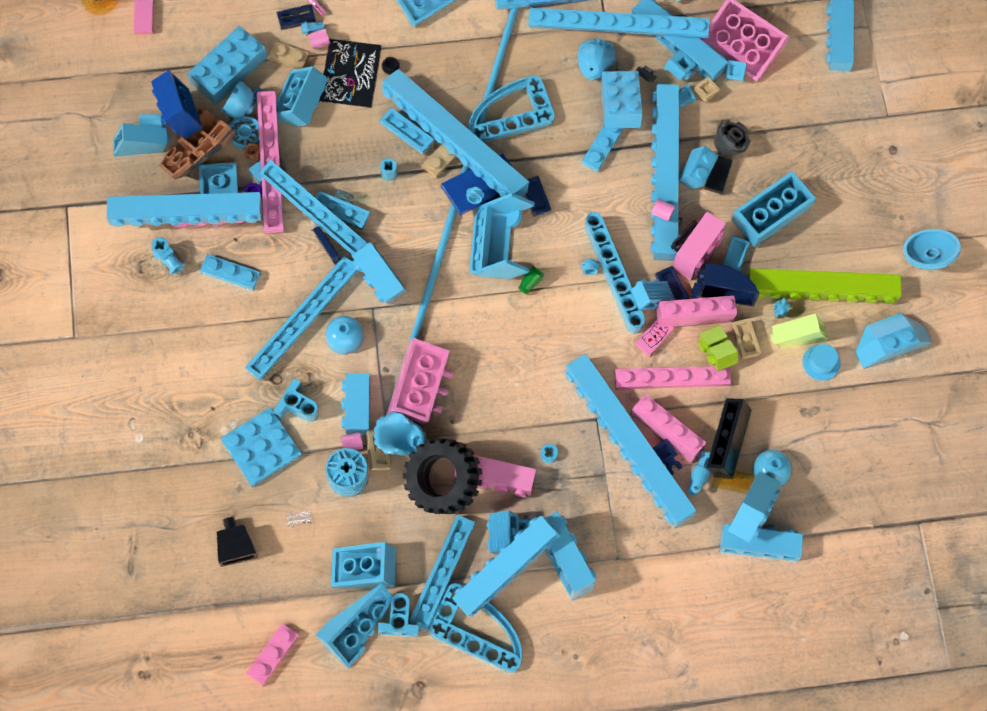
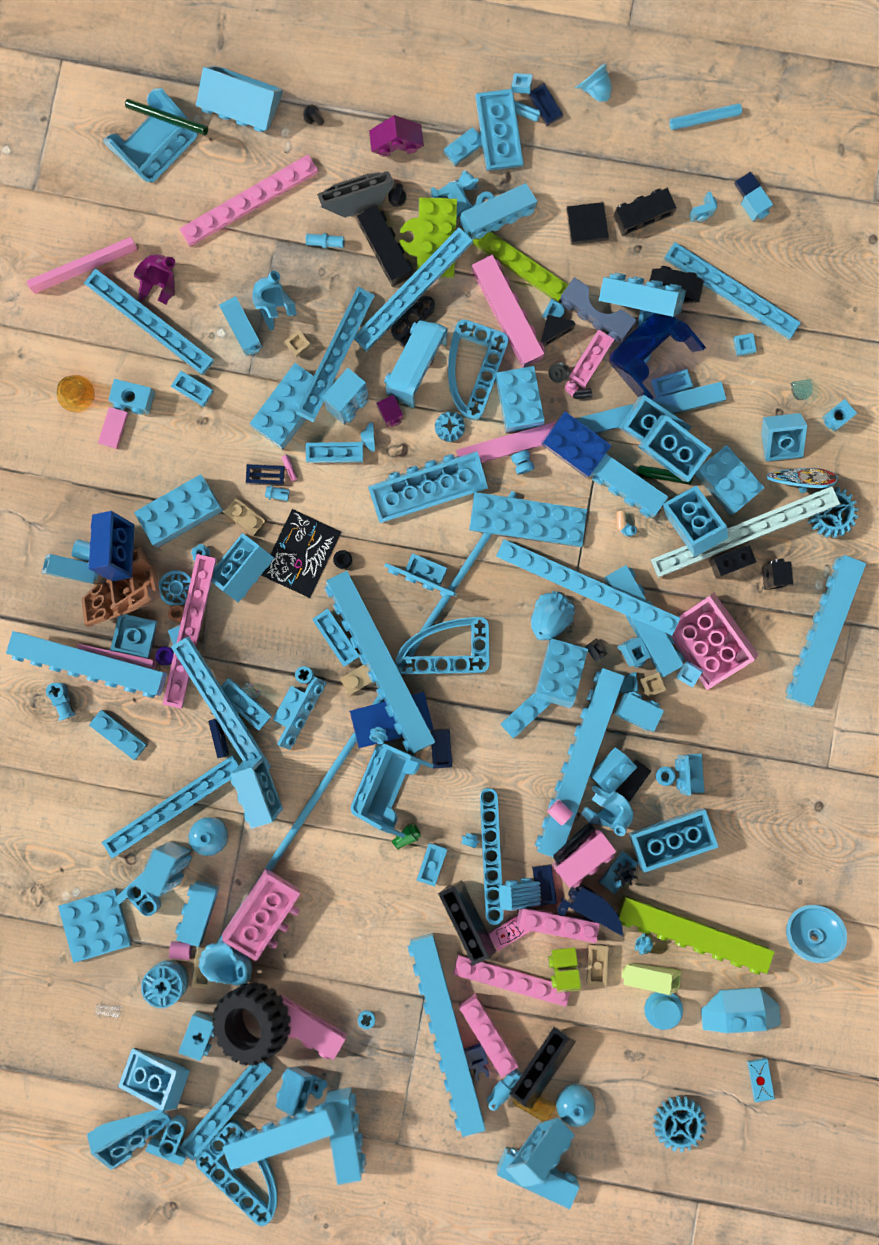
camera: 20 degrees right, 15 degrees up
(234, 544) = (40, 1017): black torso -> none
(239, 101) = (177, 558): medium azure cylinder -> none
(272, 654) = (45, 1134): bright pink plate -> none
(316, 358) = (165, 868): none -> medium azure brick
(319, 38) = (279, 508): bright pink gear -> none
(390, 202) = (296, 709): none -> medium azure bracket
(394, 525) = (191, 1045): none -> medium azure brick
(468, 54) = (424, 571): none -> medium azure bracket
(562, 297) = (431, 864): none -> medium azure plate
(613, 334) = (467, 922): none -> black brick
(702, 110) = (639, 712): none -> medium azure brick
(711, 194) = (616, 813): none -> medium azure piece
(731, 138) = (658, 751): flat silver cone -> none
(746, 249) = (627, 879): none -> black gear
(747, 157) = (671, 776): none -> medium azure plate
(767, 152) = (690, 774): none -> medium azure bracket
(867, 449) = (674, 1129): none -> medium azure gear
(933, 395) = (760, 1080): none -> medium azure tile

